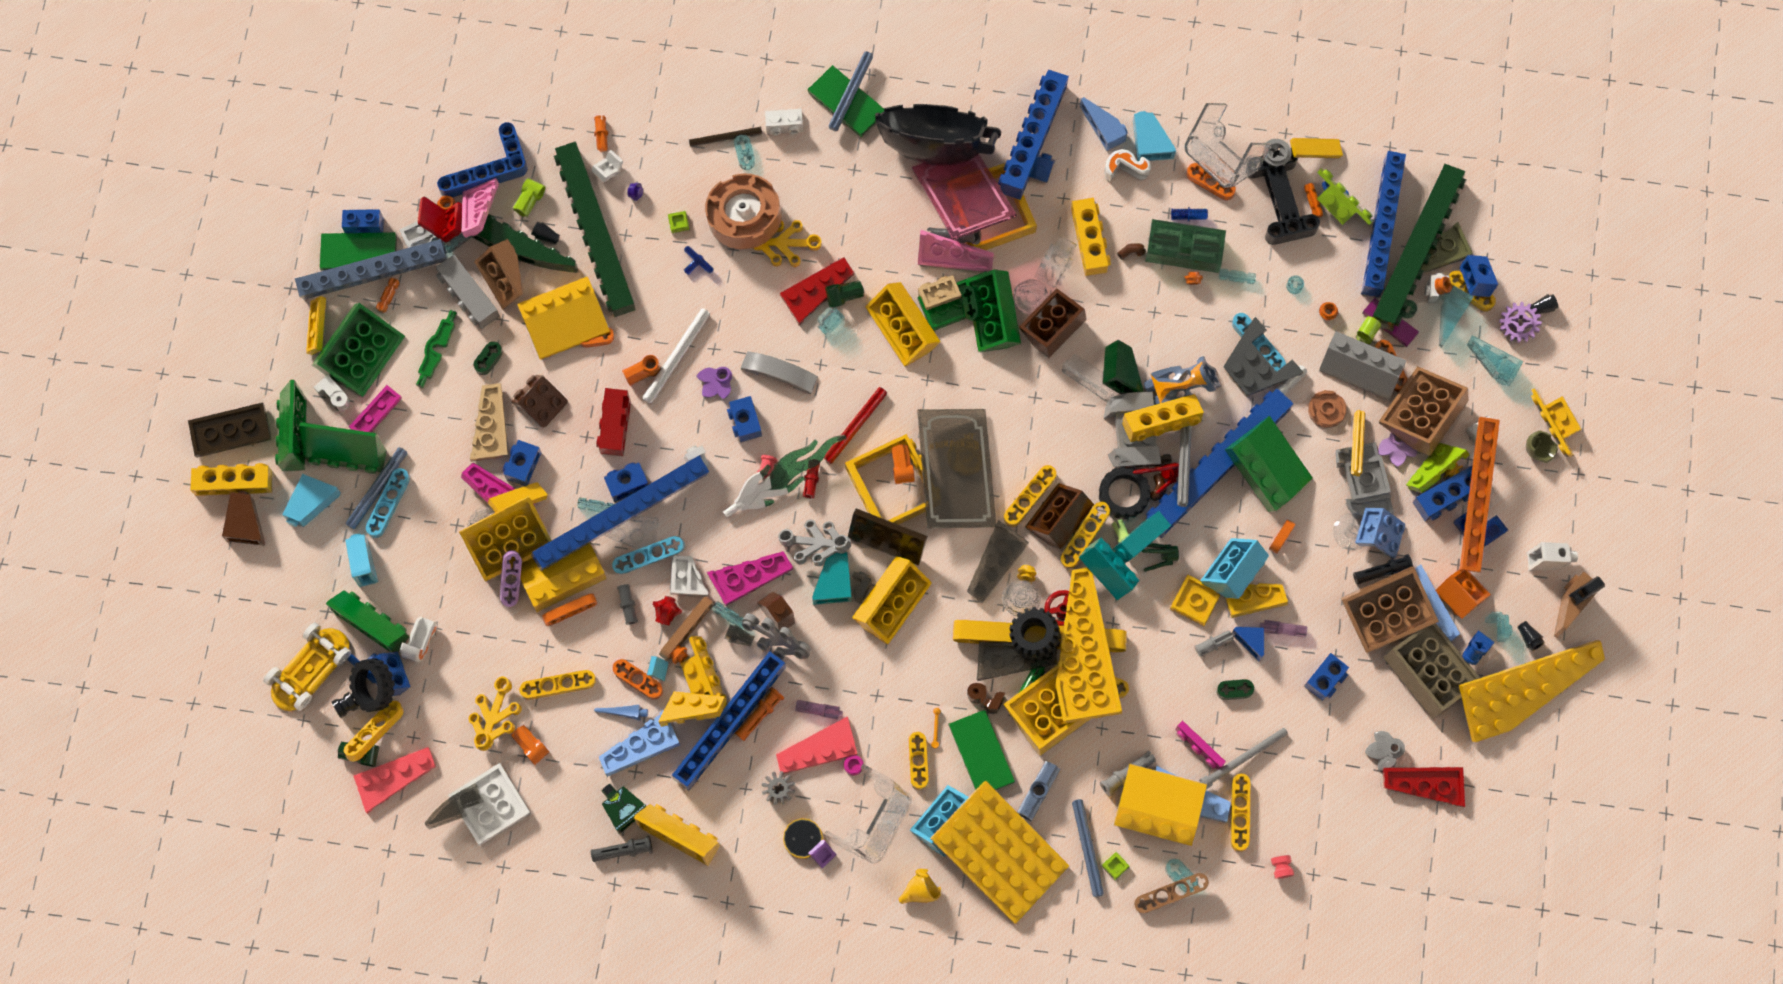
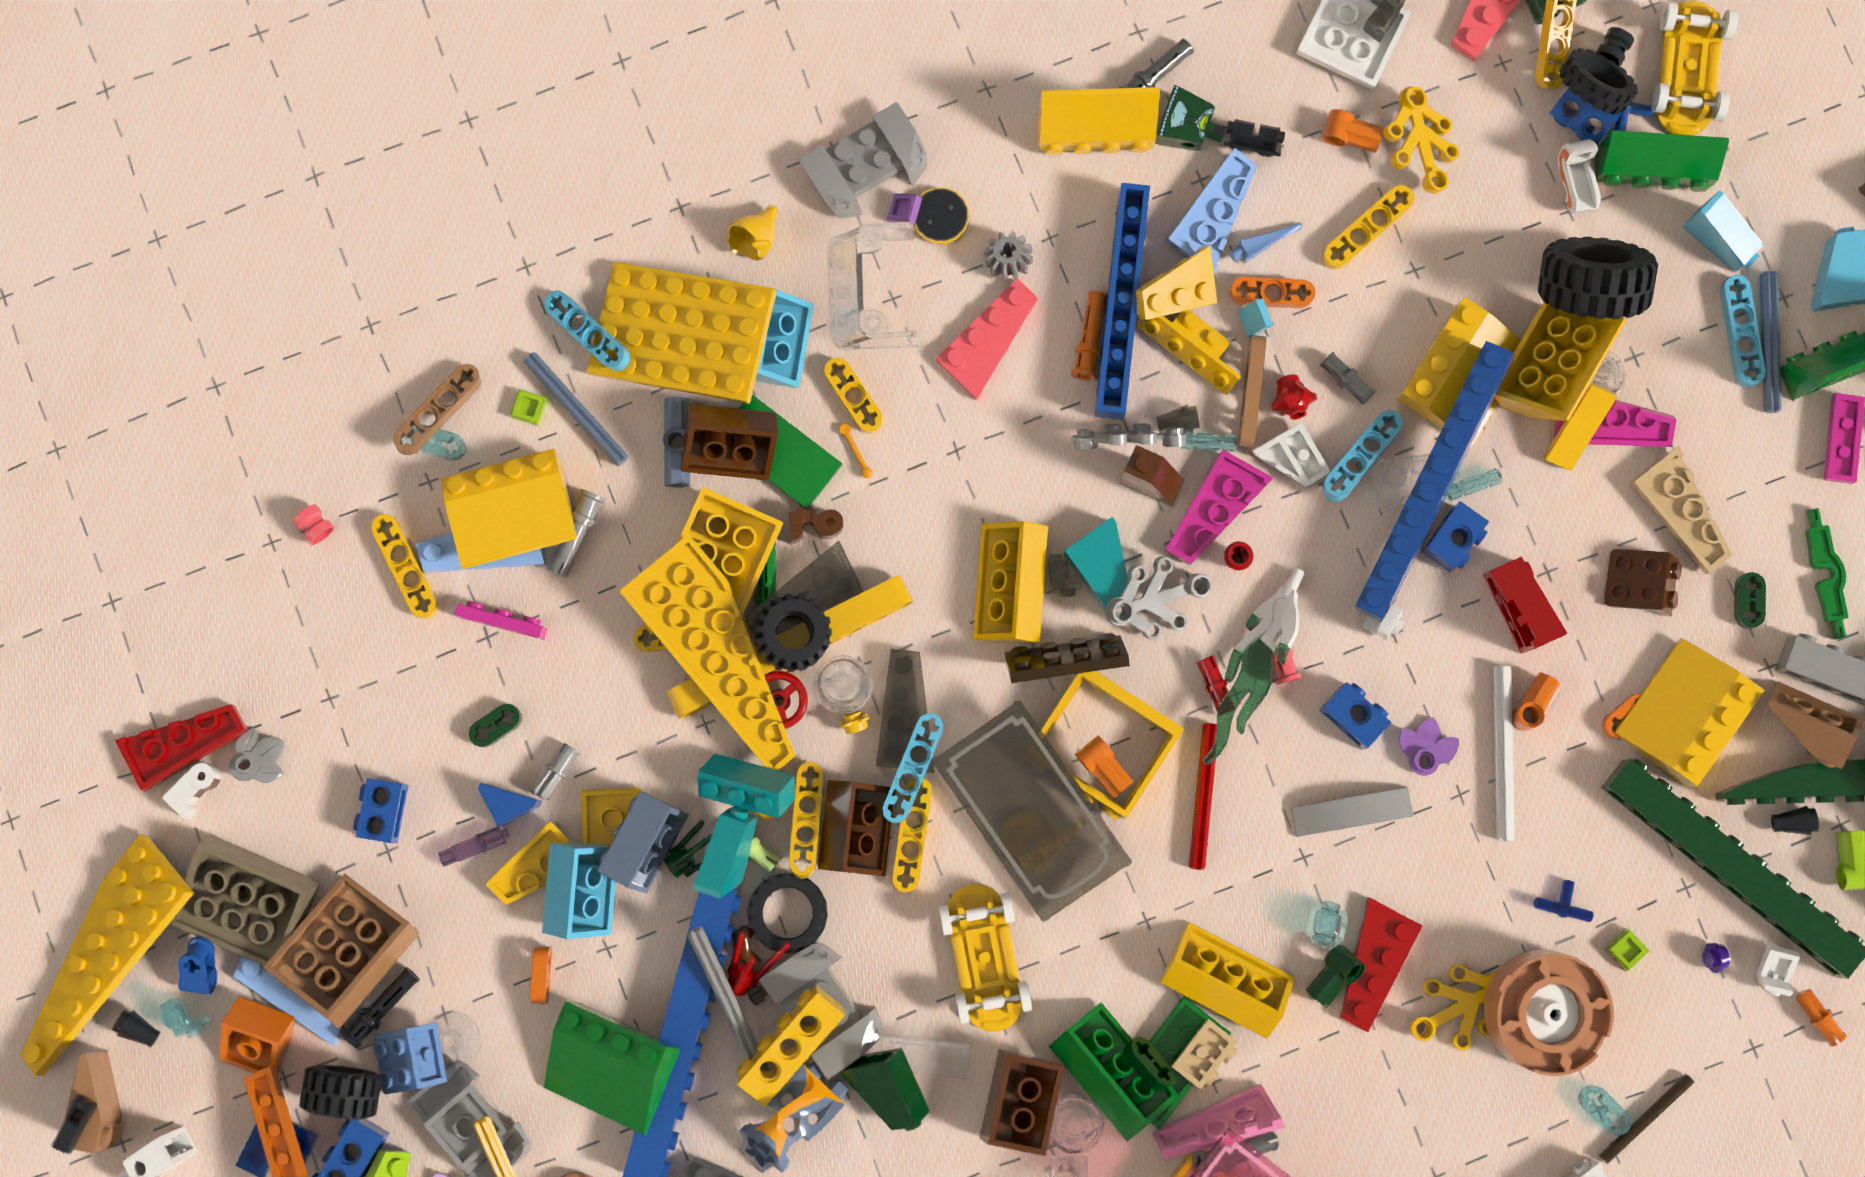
camera: 150 degrees right, 10 degrees up
(454, 569) = (1597, 277): none -> black tyre
(516, 584) = (1529, 320): lavender beam -> none
(522, 451) = (1600, 497): blue brick -> none
(569, 609) = (1416, 328): orange beam -> none
(594, 776) = (1265, 143): none -> black hinge
(679, 654) = (1240, 351): orange plate -> none
(755, 533) = (1243, 551): none -> red cone
(818, 709) = (1019, 386): clear purple piece -> none
(828, 897) = (866, 160): none -> light grey piece
(853, 765) = (932, 343): dark pink tile -> none
(1008, 768) = (729, 442): none -> reddish brown slope
(1010, 529) = (918, 770): none -> medium azure beam
(1024, 420) = (985, 957): none -> yellow piece
(1059, 886) = (587, 329): none -> medium azure beam
(1186, 572) = (642, 842): none -> sand blue slope
(1243, 758) = (466, 578): light grey bar -> none
(1425, 755) = (190, 788): none -> white leg
(1428, 532) = (340, 1091): none -> black tyre

